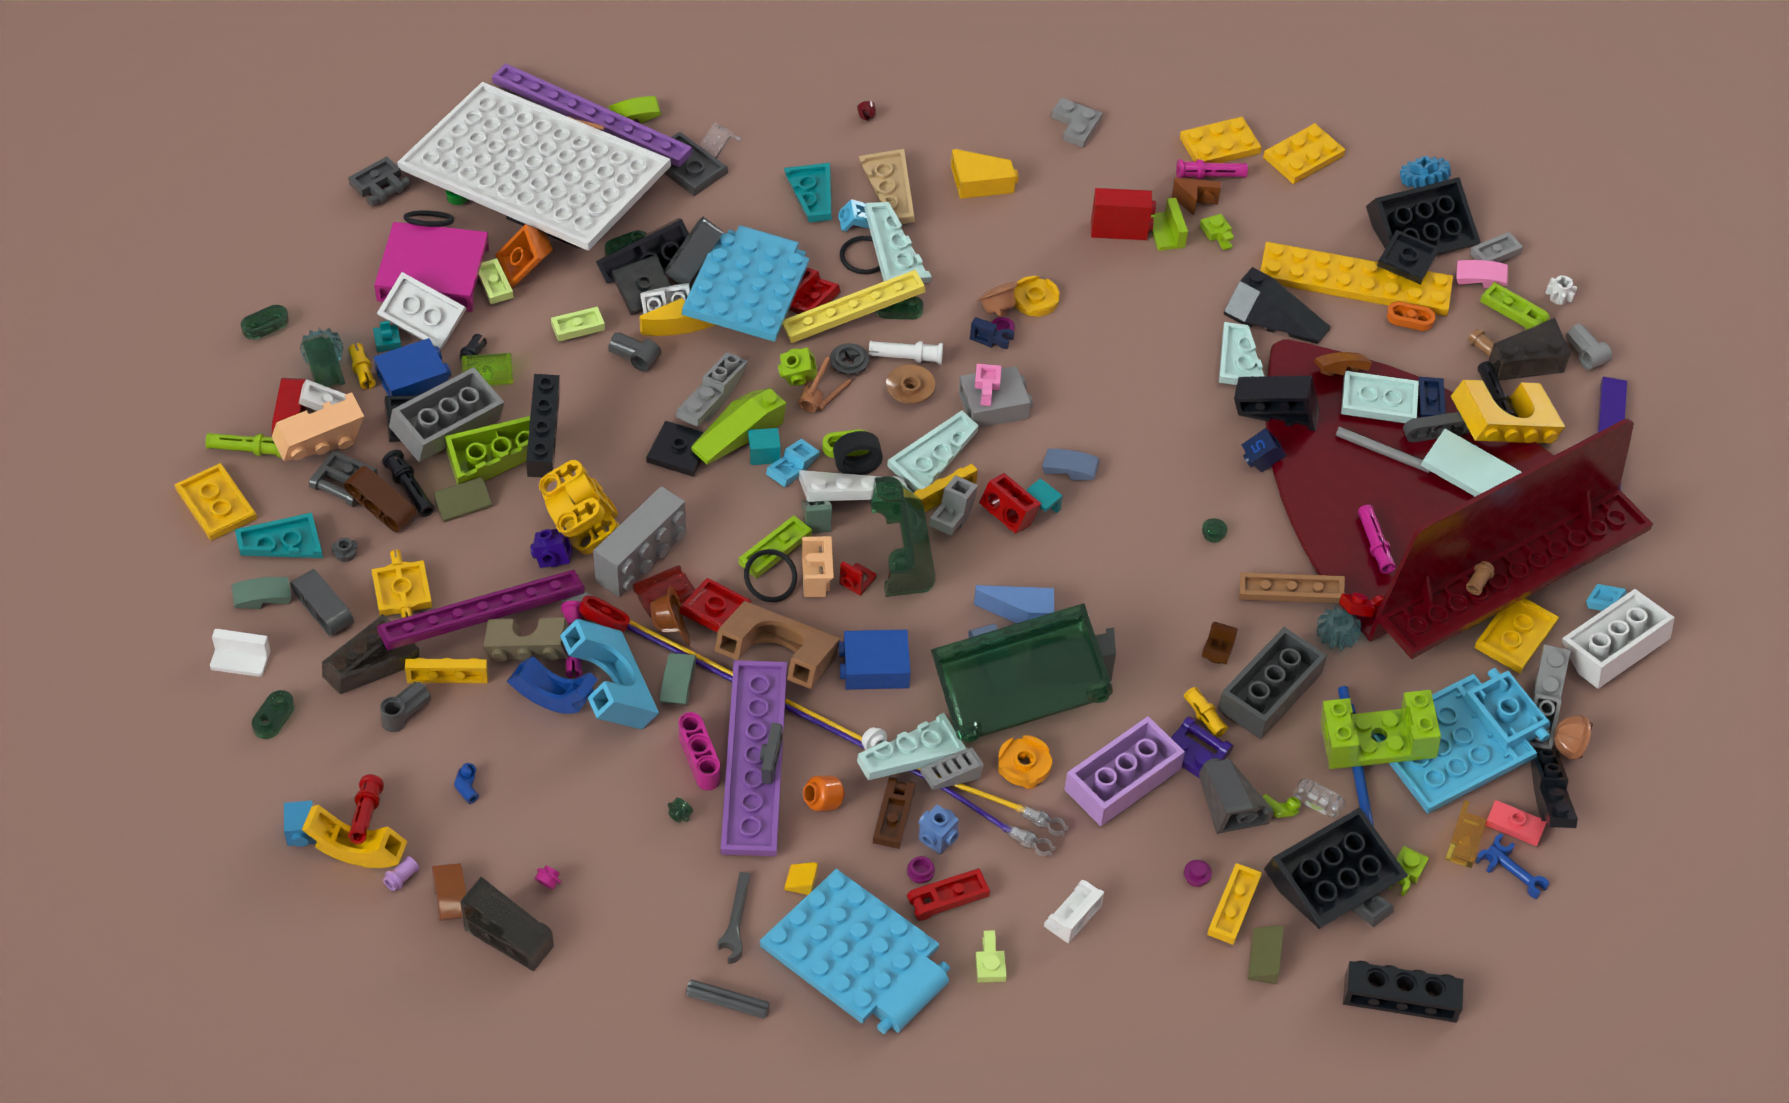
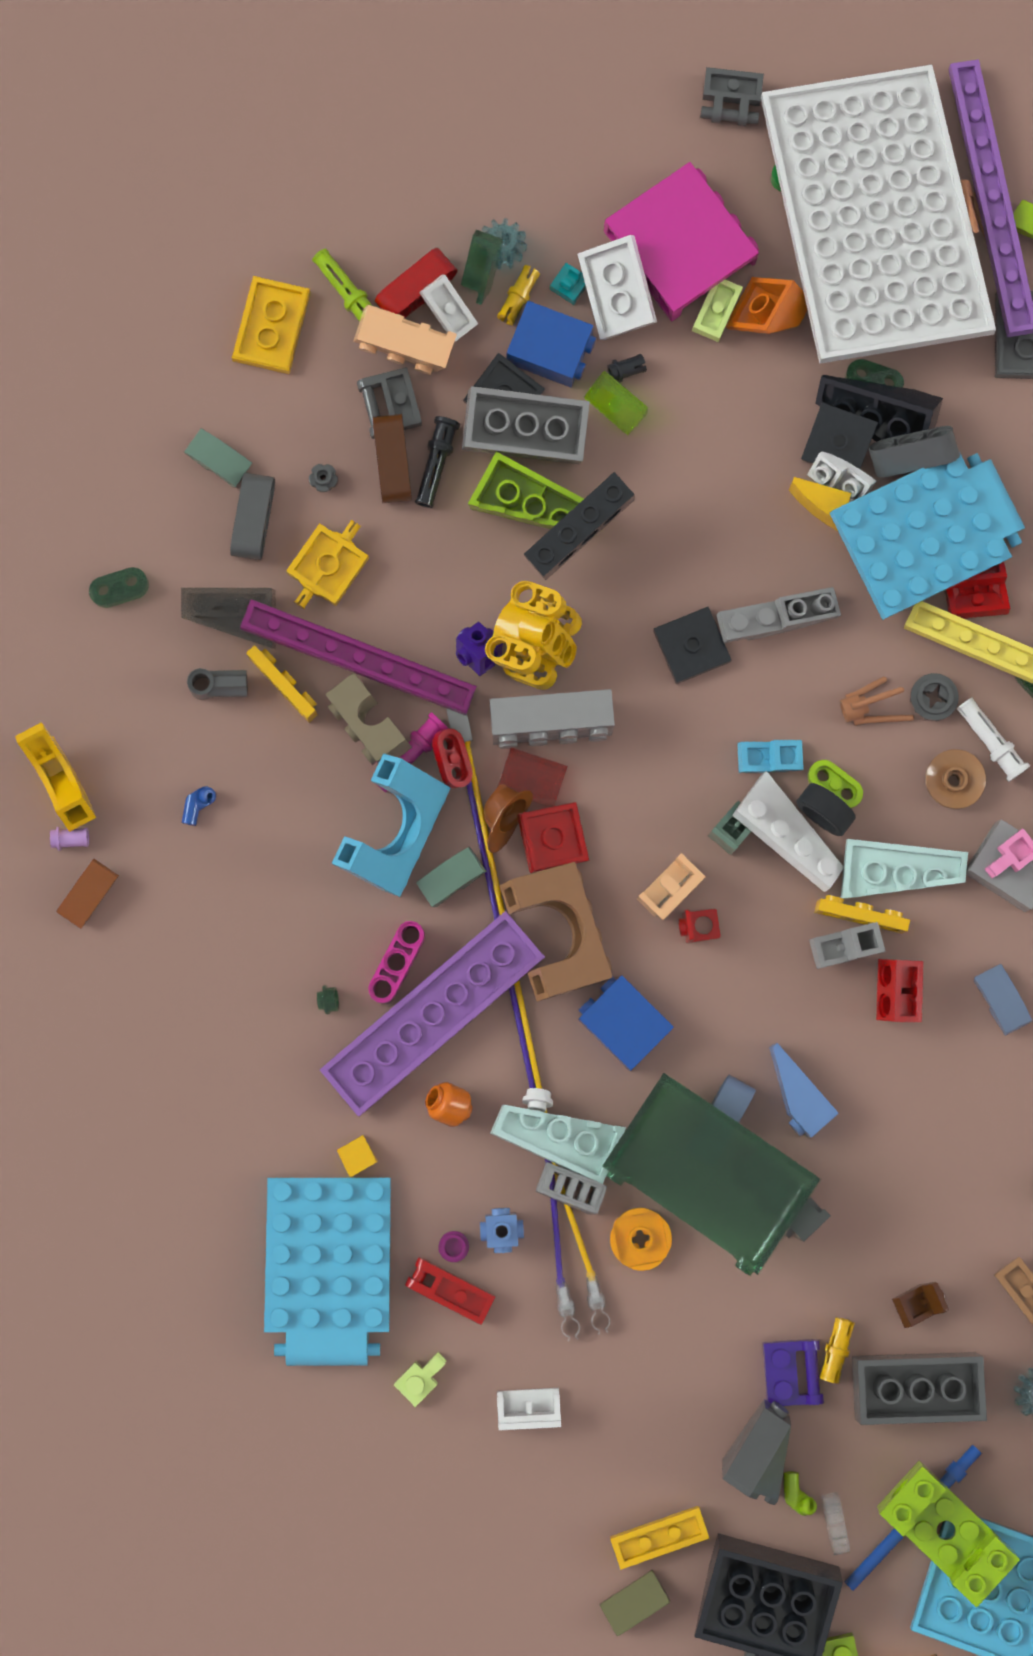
camera: 50 degrees right, 30 degrees up
(240, 652) = (145, 504): white panel -> none
(264, 322) = (486, 165): clear green plate -> none
(281, 538) = (284, 418): teal wing -> none
(294, 819) = (37, 710): dark azure brick -> none
(366, 801) = (101, 749): red pin -> none
(428, 223) = (716, 195): black tyre -> none
(462, 499) = (462, 522): olive slope -> none
(505, 925) = (94, 972): clear smoke wedge -> none
(547, 877) = (169, 956): dark pink plate -> none
(549, 689) = (341, 786): blue arch -> none
(577, 324) = (741, 427): yellowish green plate -> none
(639, 353) = (760, 513): dark grey piece -> none
(727, 998) = (195, 1200): dark grey axle -> none
(730, 430) = (767, 672): lime wedge -> none
(731, 937) = (254, 1150): dark grey piece -> none
(764, 446) = (760, 717): teal panel -> none
(770, 753) = (436, 1032): dark grey plate -> none
(783, 556) = (656, 854): black tyre -> none
(784, 539) = (663, 828): lime plate -> none
(797, 366) = (875, 665): lime brick -> none
(894, 813) = (487, 1176): reddish brown plate -> none
(911, 566) = (796, 918): clear green windscreen -> none
(1046, 496) = (936, 1012): teal panel -> none
(1124, 771) = (703, 1338): lavender brick -> none
(1197, 873) = (663, 1479): magenta plate -> none

